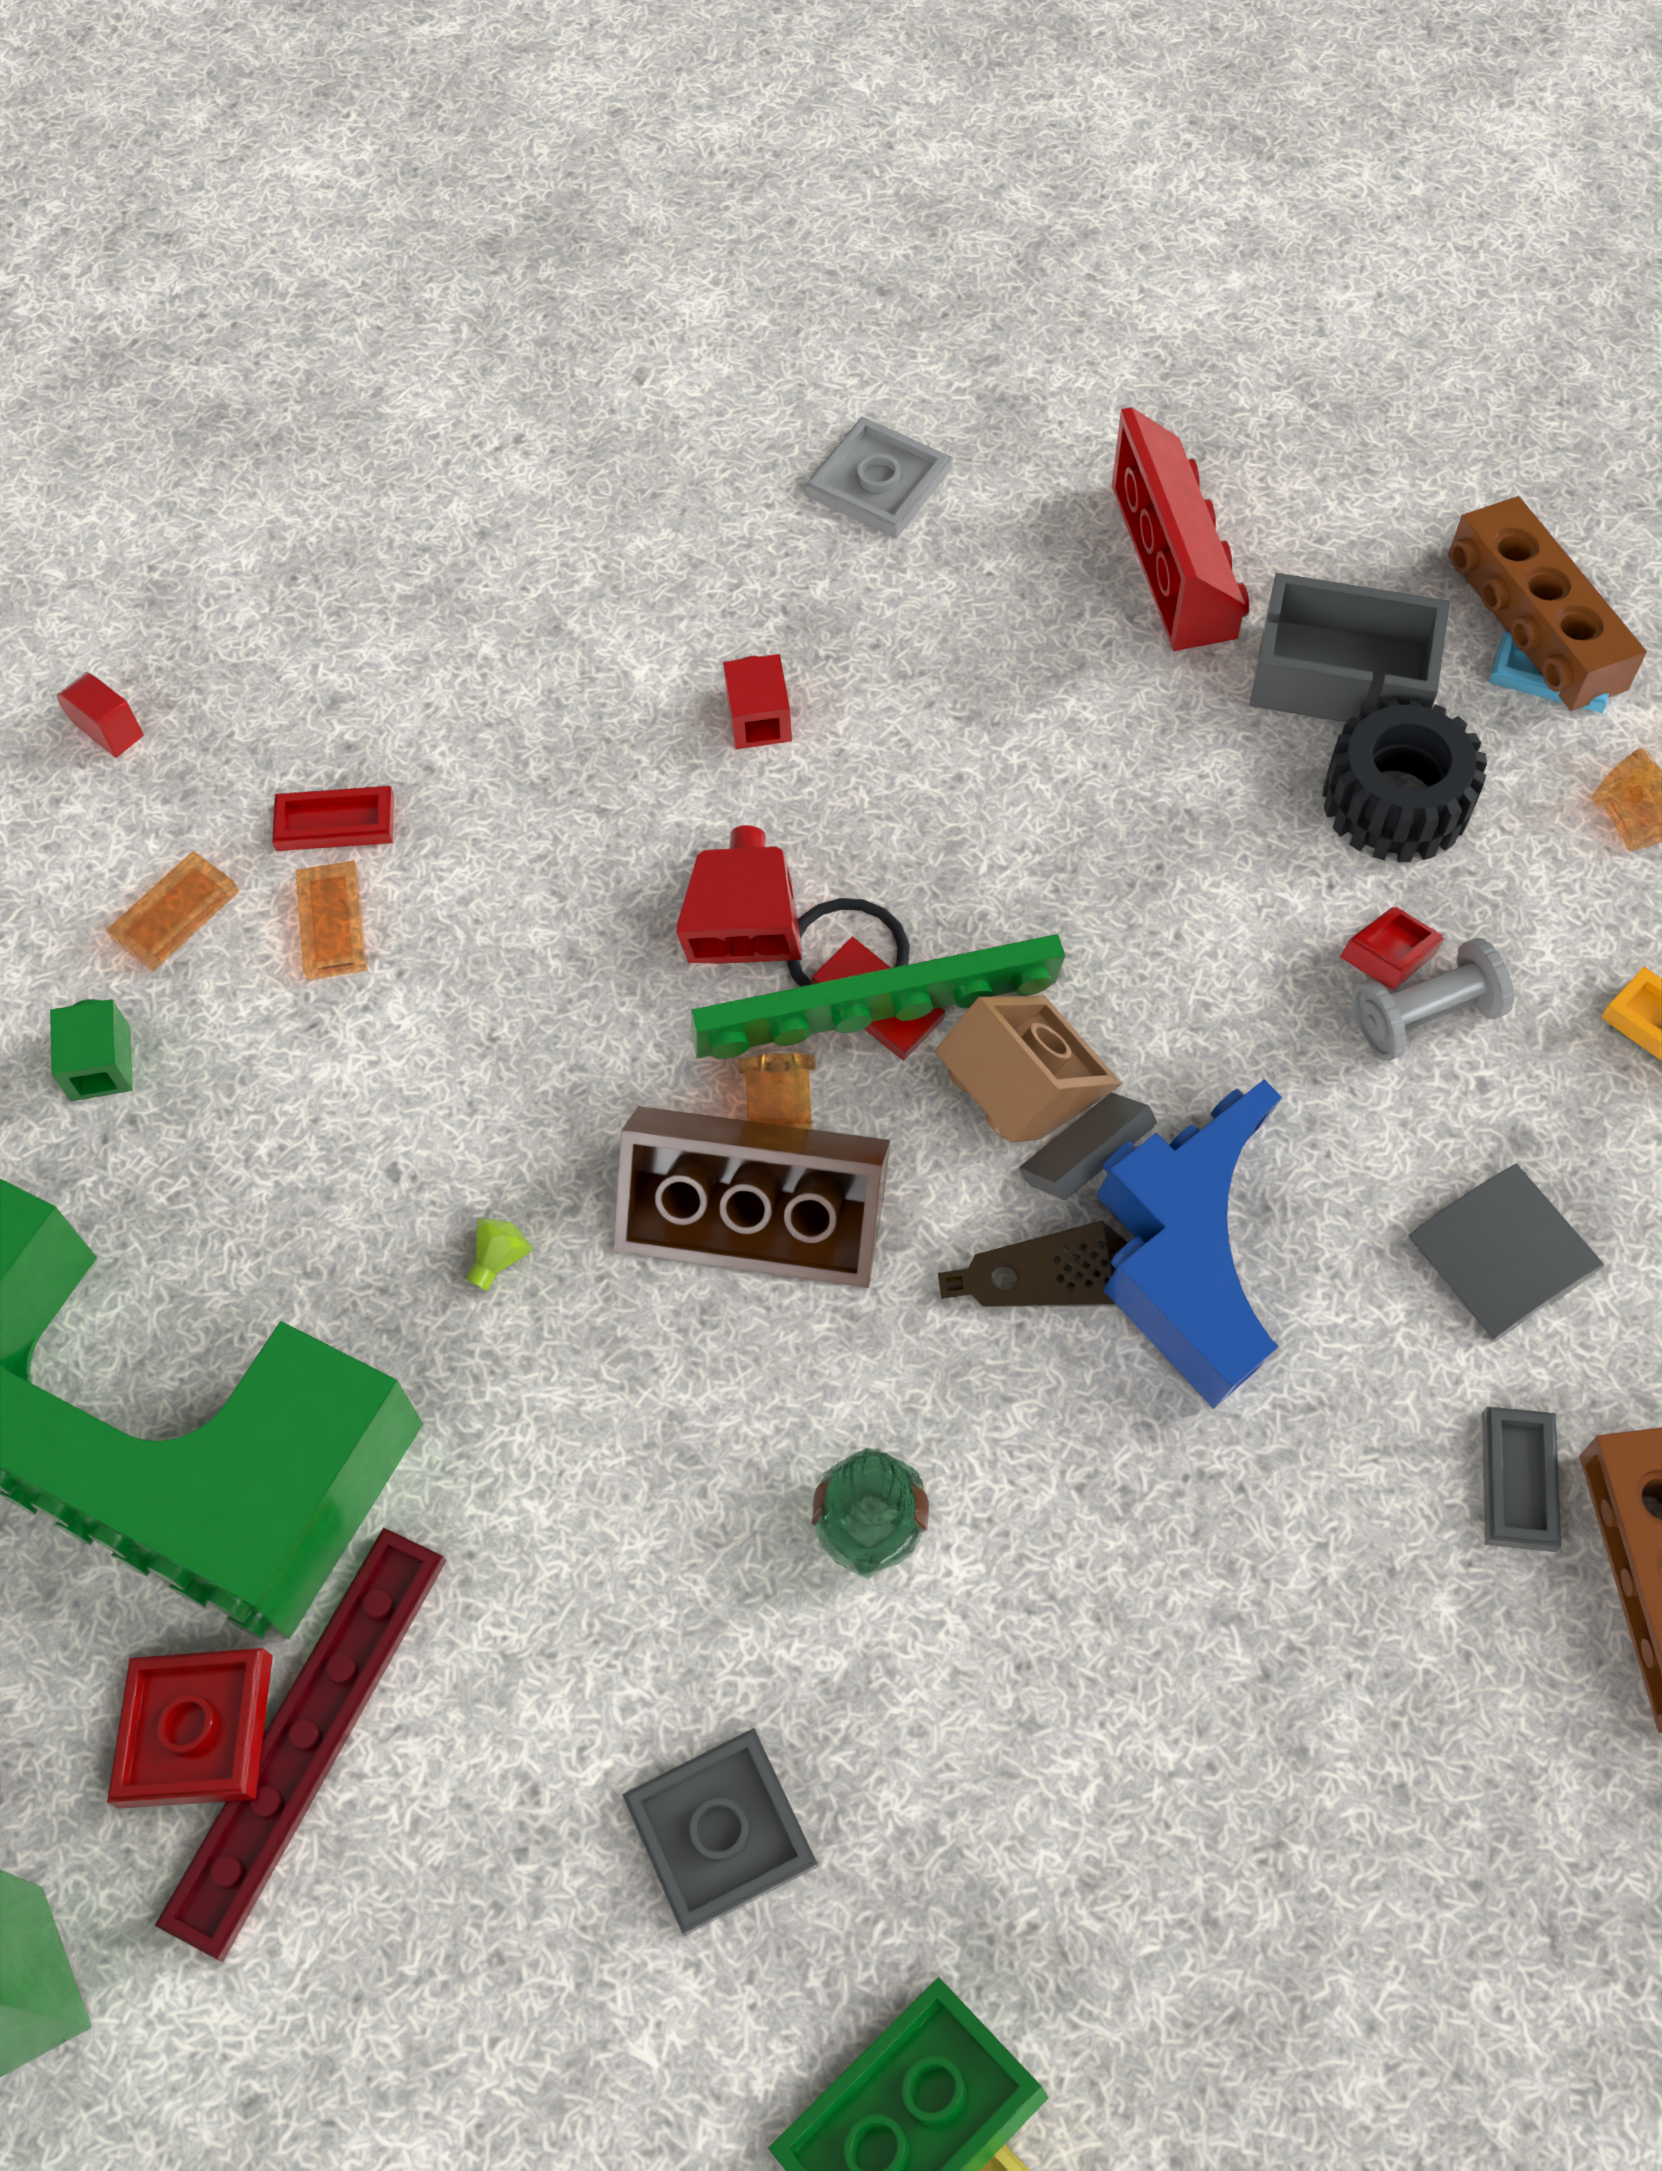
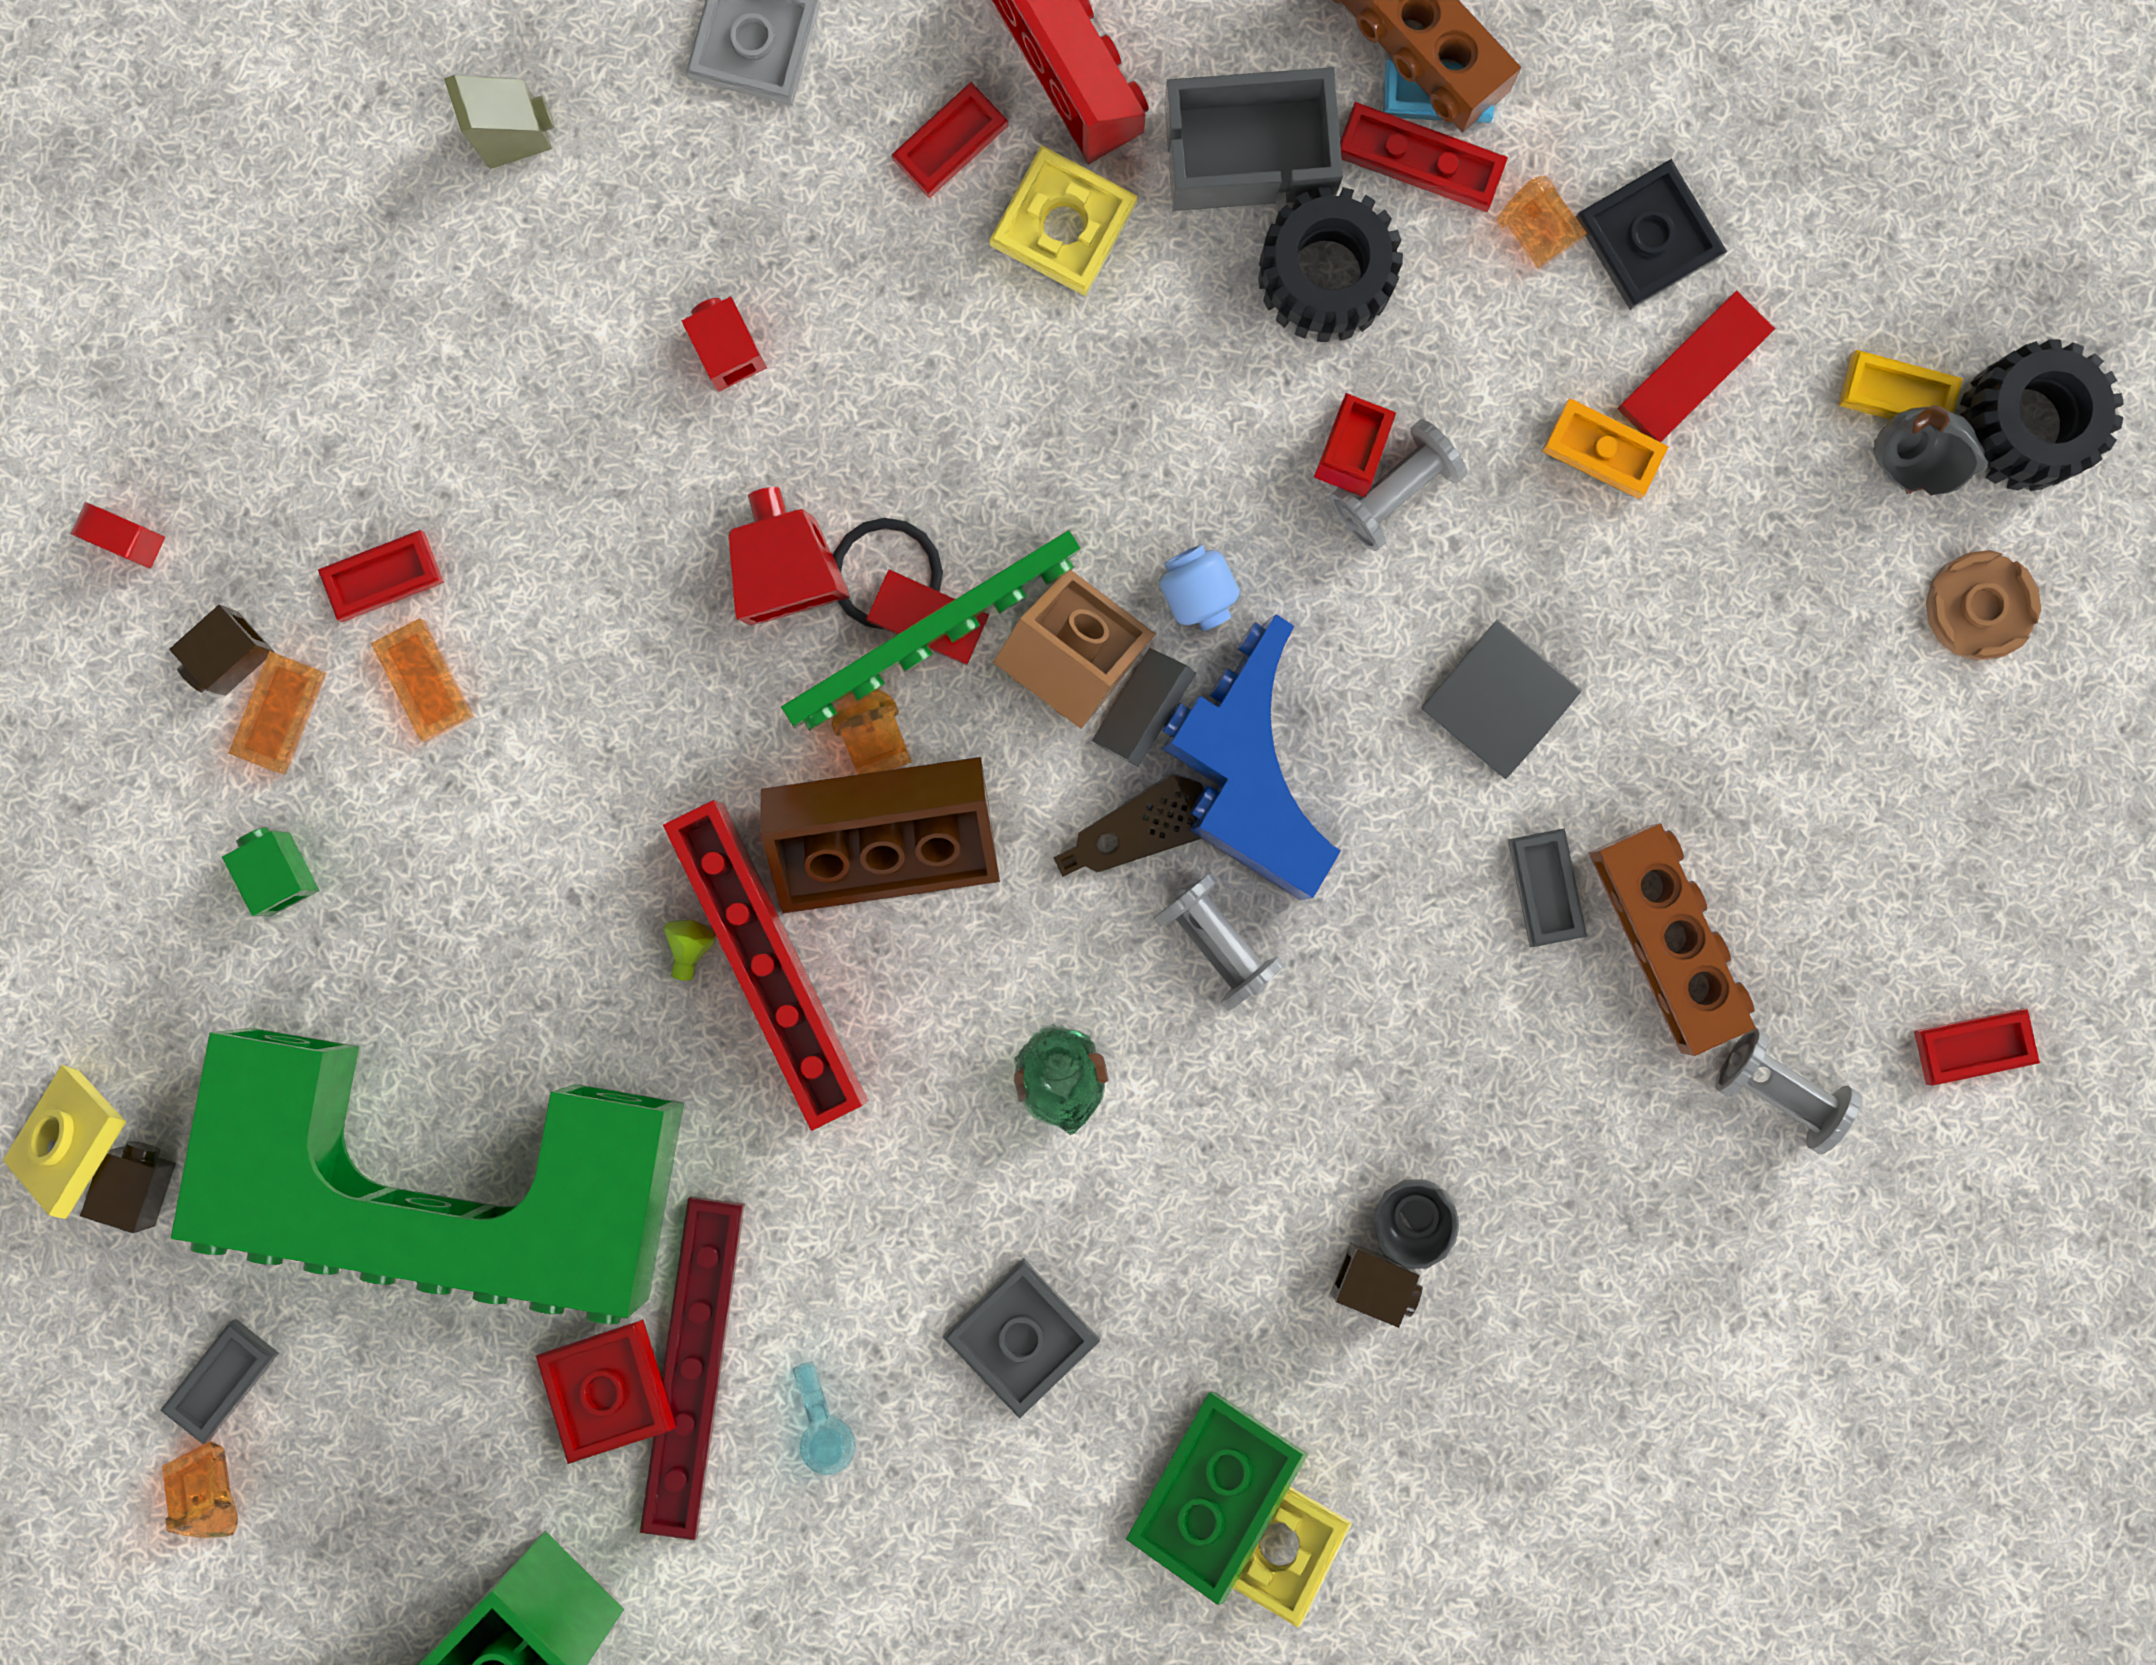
camera: 20 degrees left, 25 degrees up
(143, 835) = (219, 651): none -> dark brown brick
(431, 1884) = (827, 1442): none -> clear light blue plate
(575, 1292) = (766, 964): none -> red brick
(617, 468) = (500, 117): none -> slope
(1041, 597) = (950, 140): none -> red tile
(1105, 1414) = (1219, 942): none -> light grey hose
(1139, 654) = (1055, 183): none -> light yellow piece
(1184, 1041) = (1199, 587): none -> light blue head
(1198, 1902) = (1376, 1286): none -> dark brown brick
(1285, 1827) = (1429, 1214): none -> dark grey hair
(1523, 722) = (1421, 157): none -> red tile

